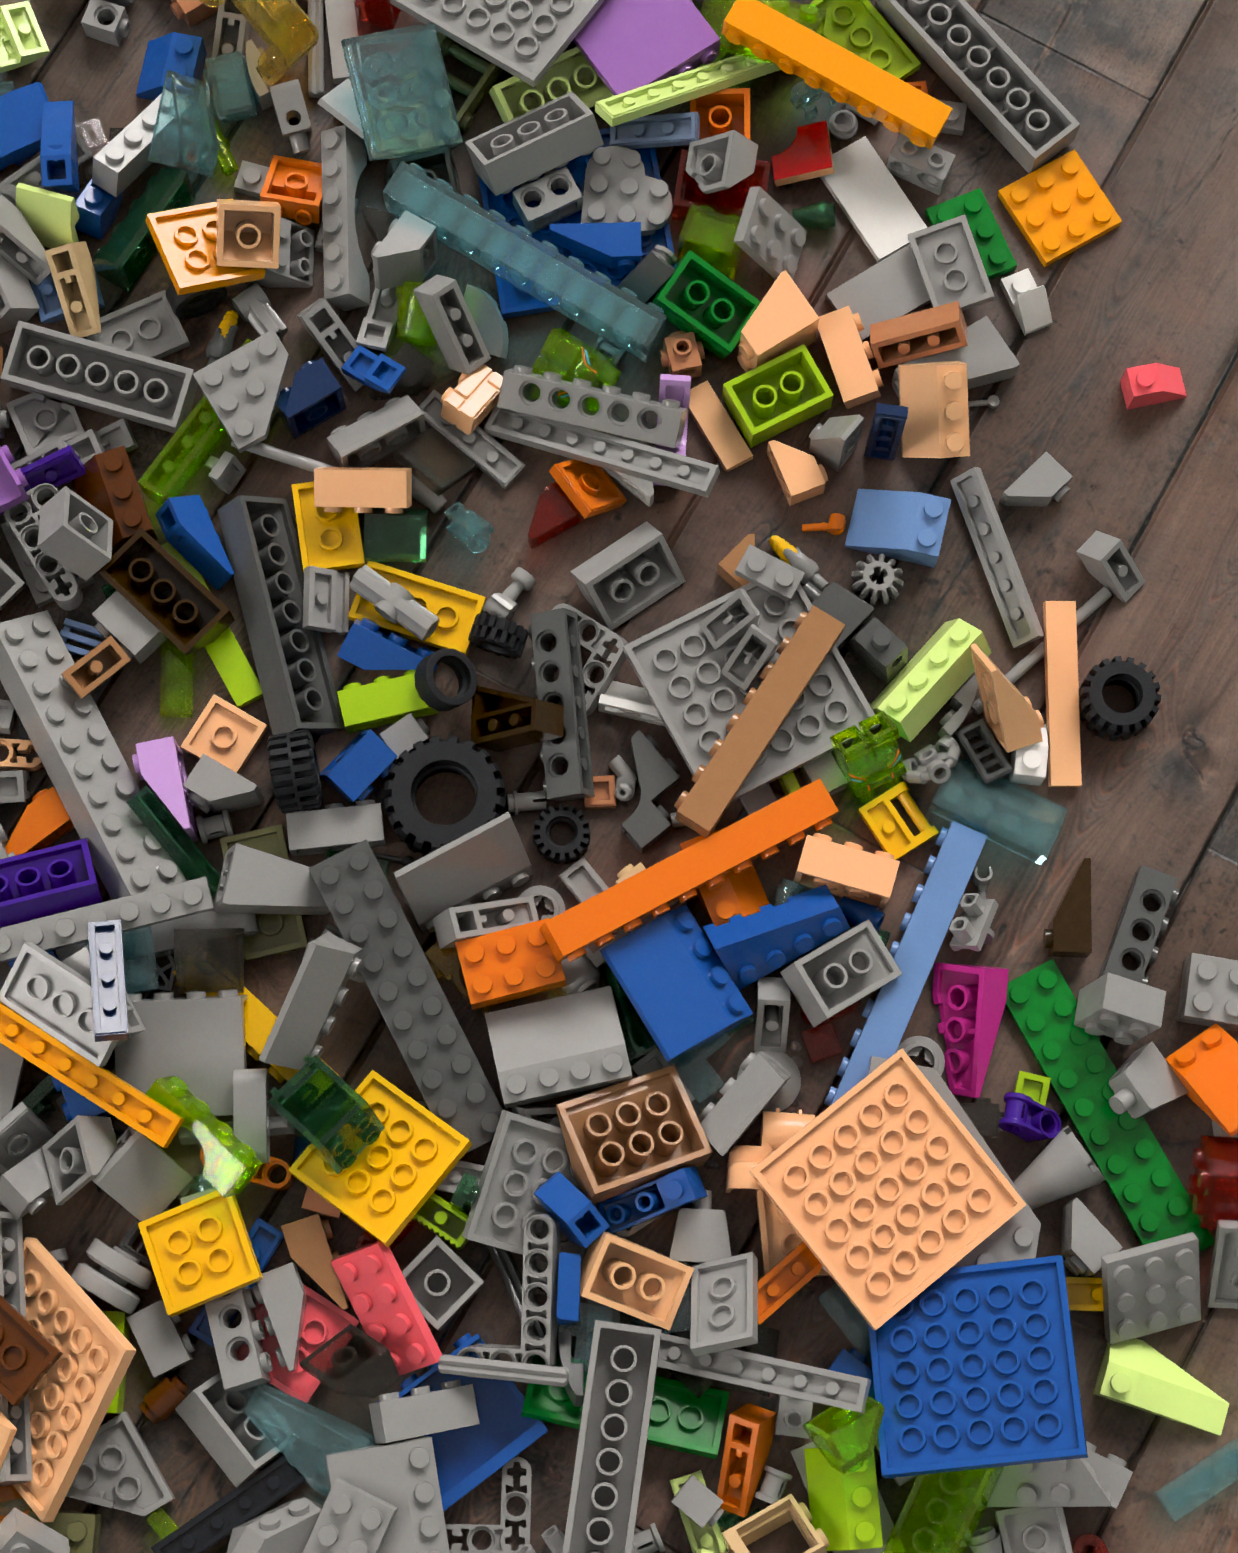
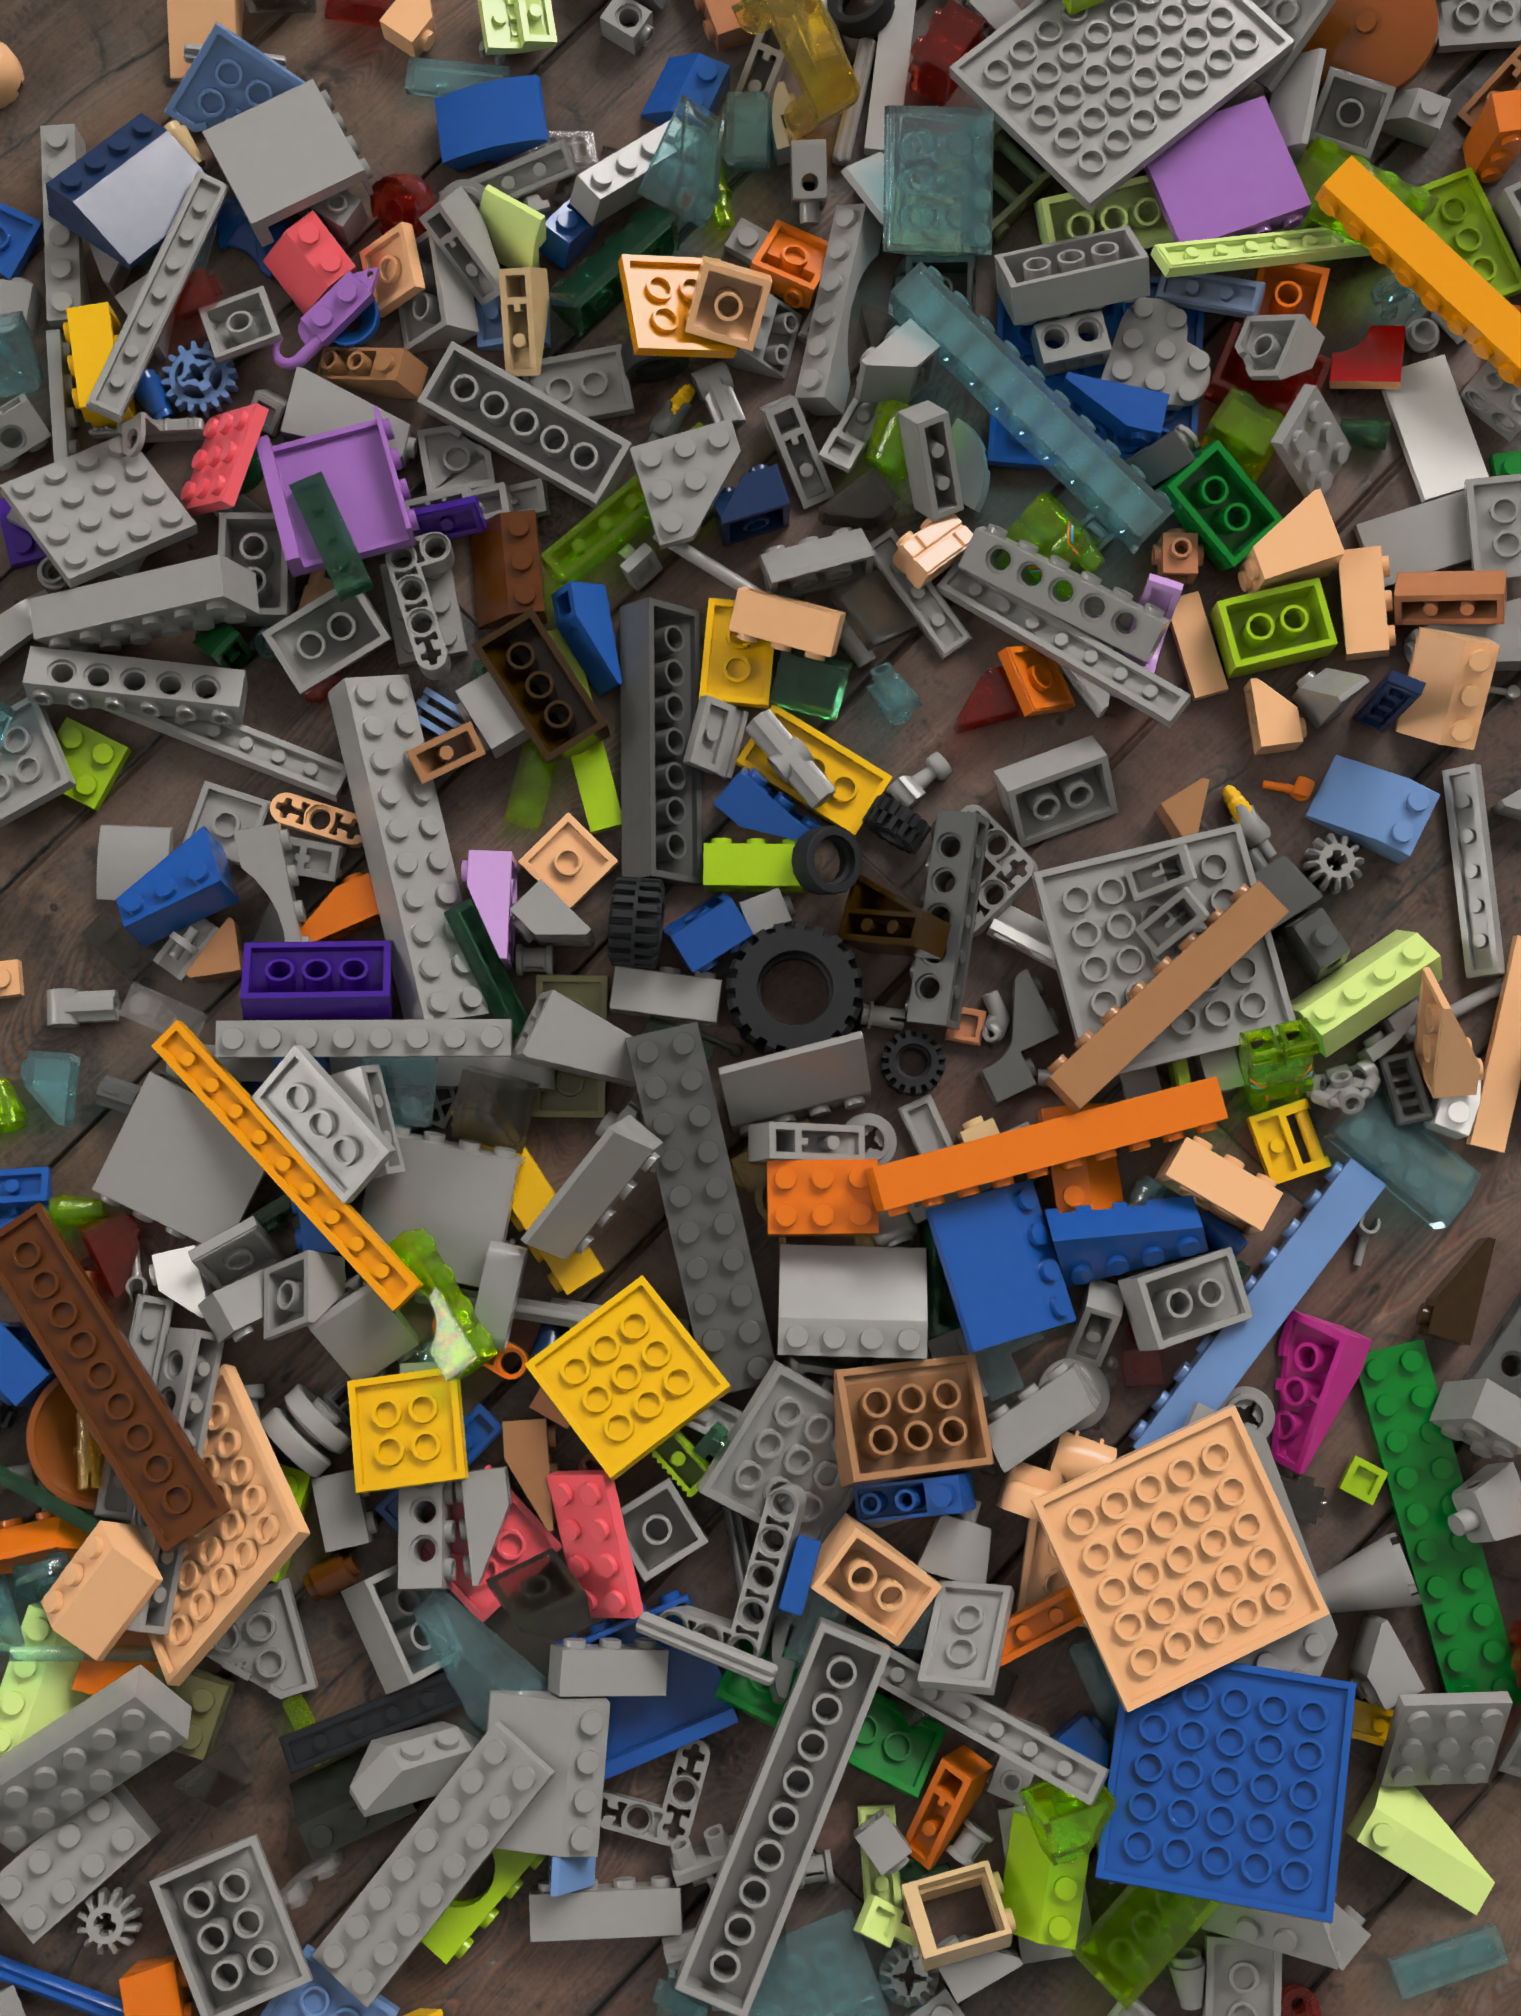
camera: 15 degrees right, 5 degrees up
(59, 148) = (542, 155): blue slope -> none
(75, 533) = (458, 597): light grey brick -> none
(108, 981) = (375, 1112): tile -> none
(326, 1114) = (580, 1317): clear green container -> none
(373, 370) = (829, 491): blue slope -> none
(572, 1210) = (823, 1489): blue slope -> none
(769, 573) = (1217, 830): light grey plate -> none
(974, 925) = (1346, 1279): light grey hips -> none
(1028, 1118) = (1353, 1513): dark purple piece -> none

